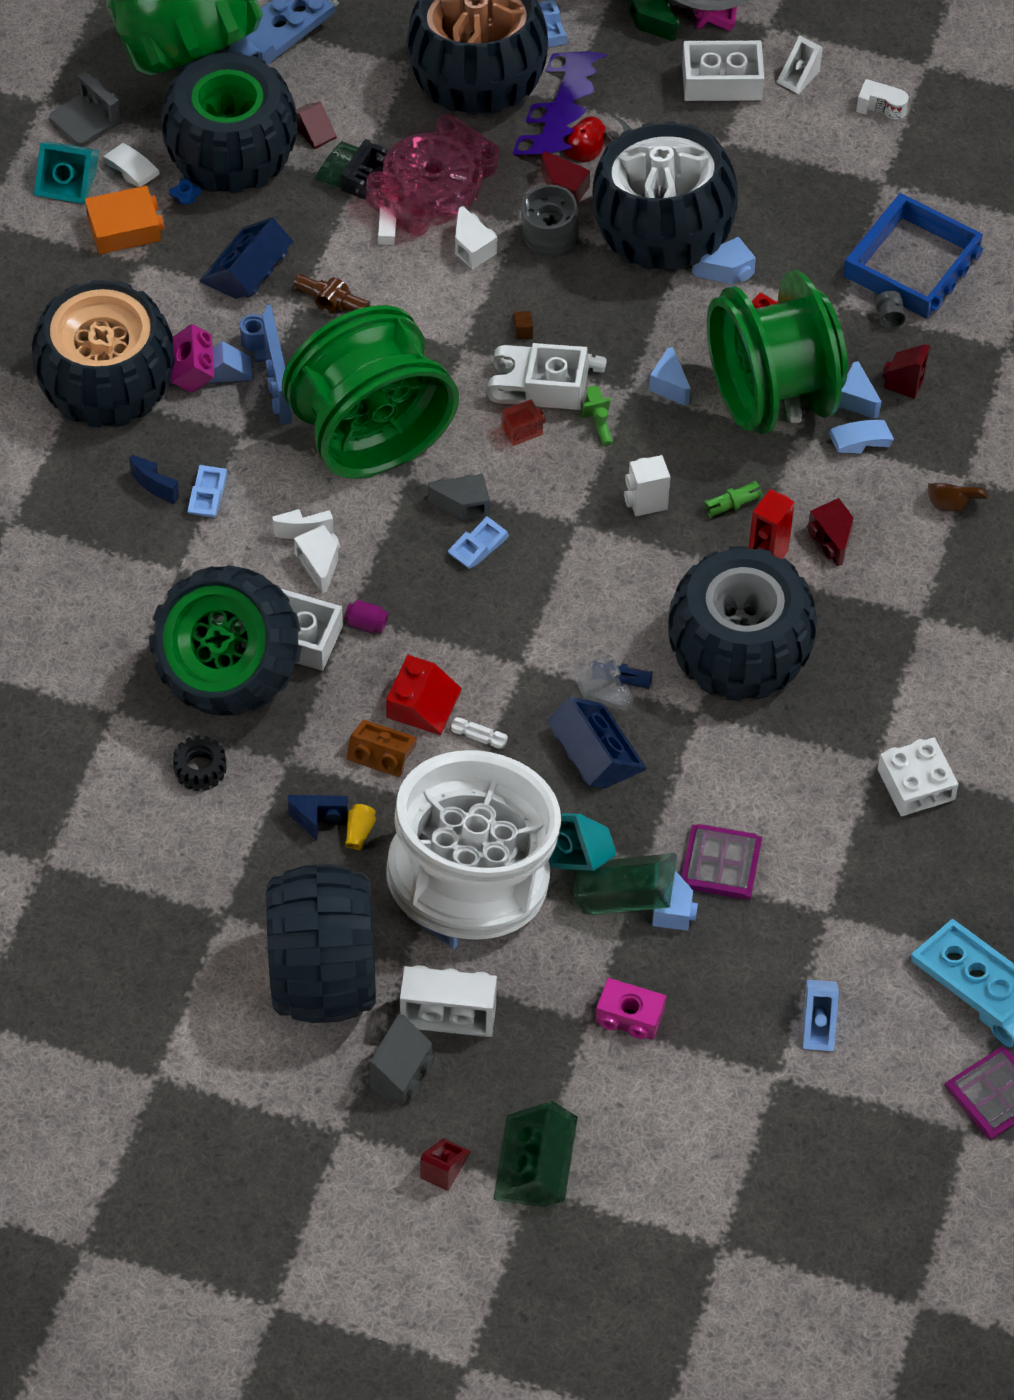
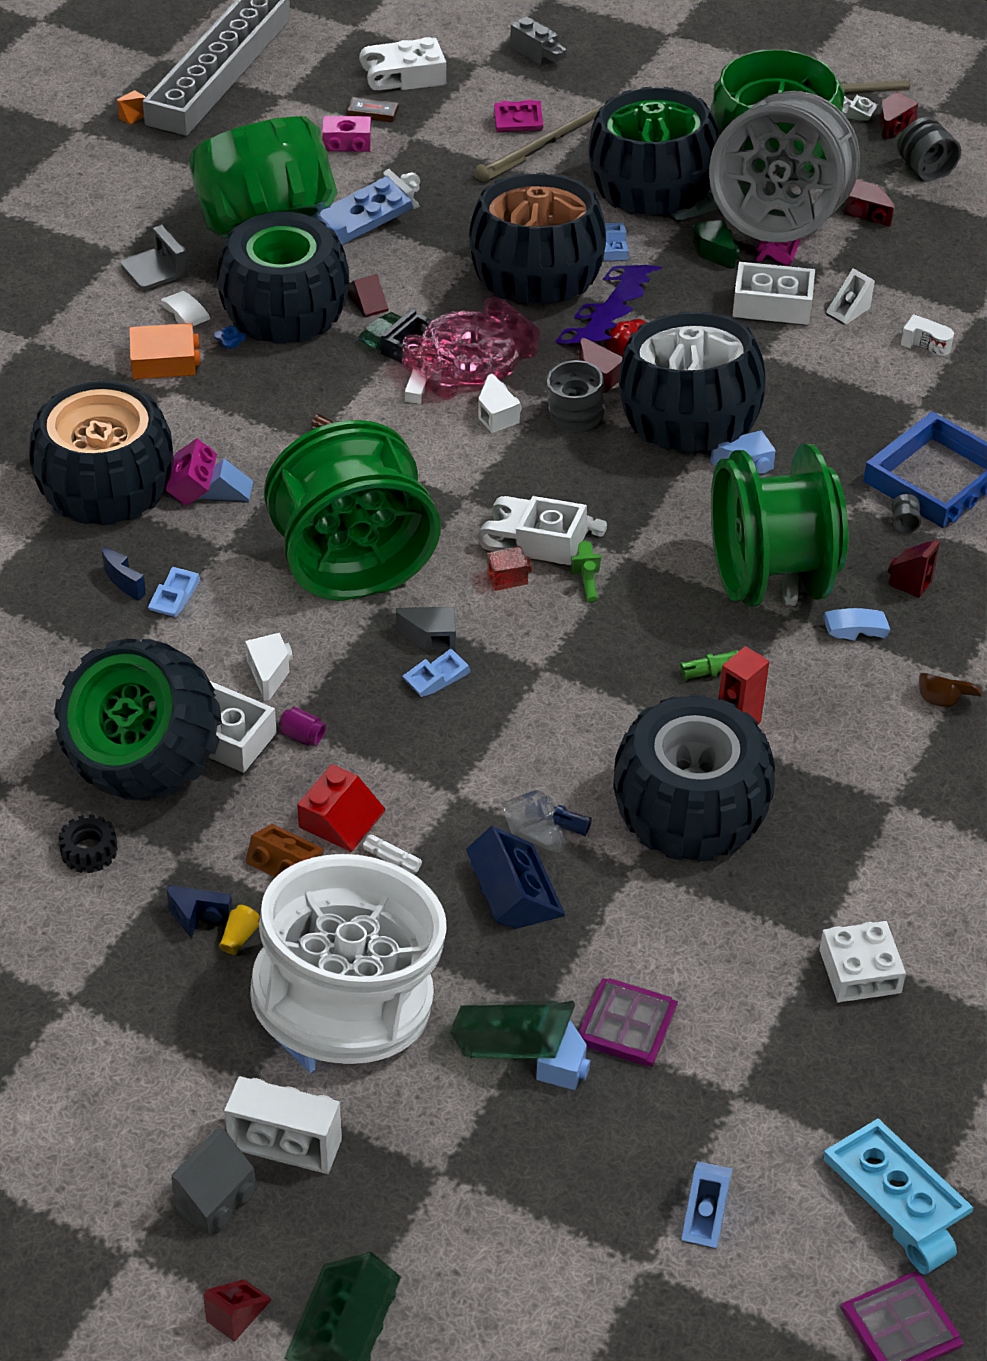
camera: 10 degrees right, 10 degrees down
(65, 171) = (120, 305): teal slope -> none
(248, 259) = (274, 397): dark blue slope -> none
(261, 336) = (260, 457): medium blue hinge -> none
(293, 524) = (250, 628): white slope -> none
(320, 943) = (149, 1037): black wheel -> none
(523, 325) = (530, 485): reddish brown piece -> none
(581, 844) = (468, 974): teal slope -> none
(622, 996) = (483, 1150): dark pink brick -> none
(647, 485) = (622, 638): white brick -> none
(669, 379) = (666, 548): light blue slope -> none
(833, 528) = (811, 704): dark red slope -> none
(859, 393) = (860, 584): light blue slope -> none

